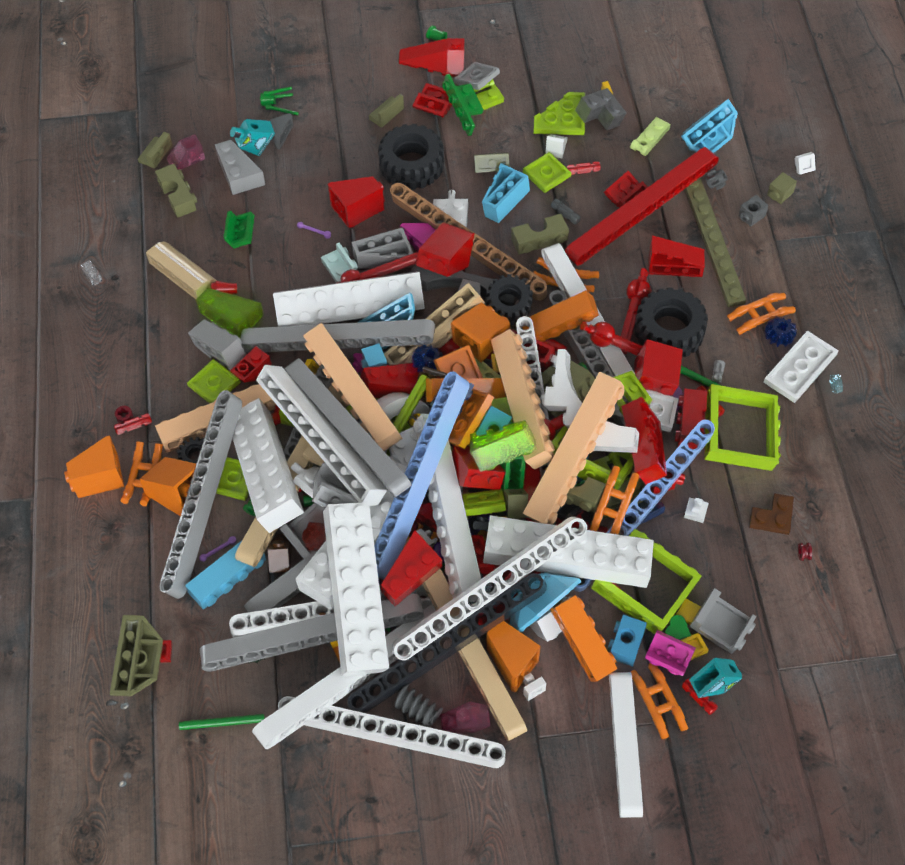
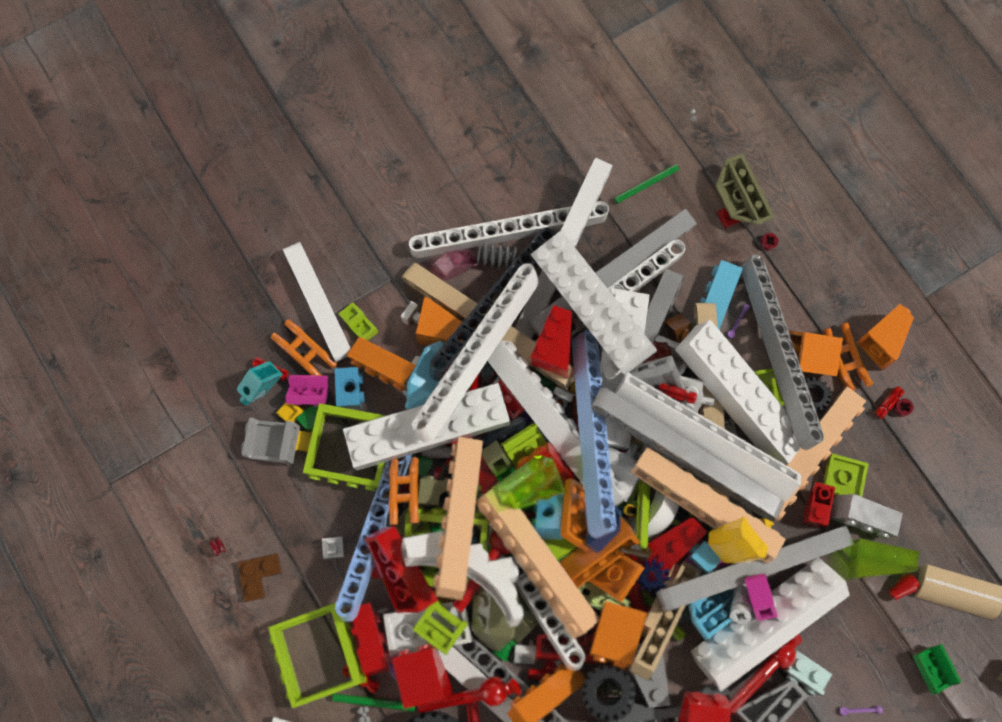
camera: 150 degrees right, 15 degrees up
(134, 606) = (765, 246): none -> dark red bush
(323, 473) = (678, 393): none -> red axle
(345, 341) = (737, 542): none -> yellow slope
(348, 308) = (761, 597): none -> dark pink slope
(367, 312) = (741, 605): none -> white axle
(591, 705) = (358, 322): none -> lime slope

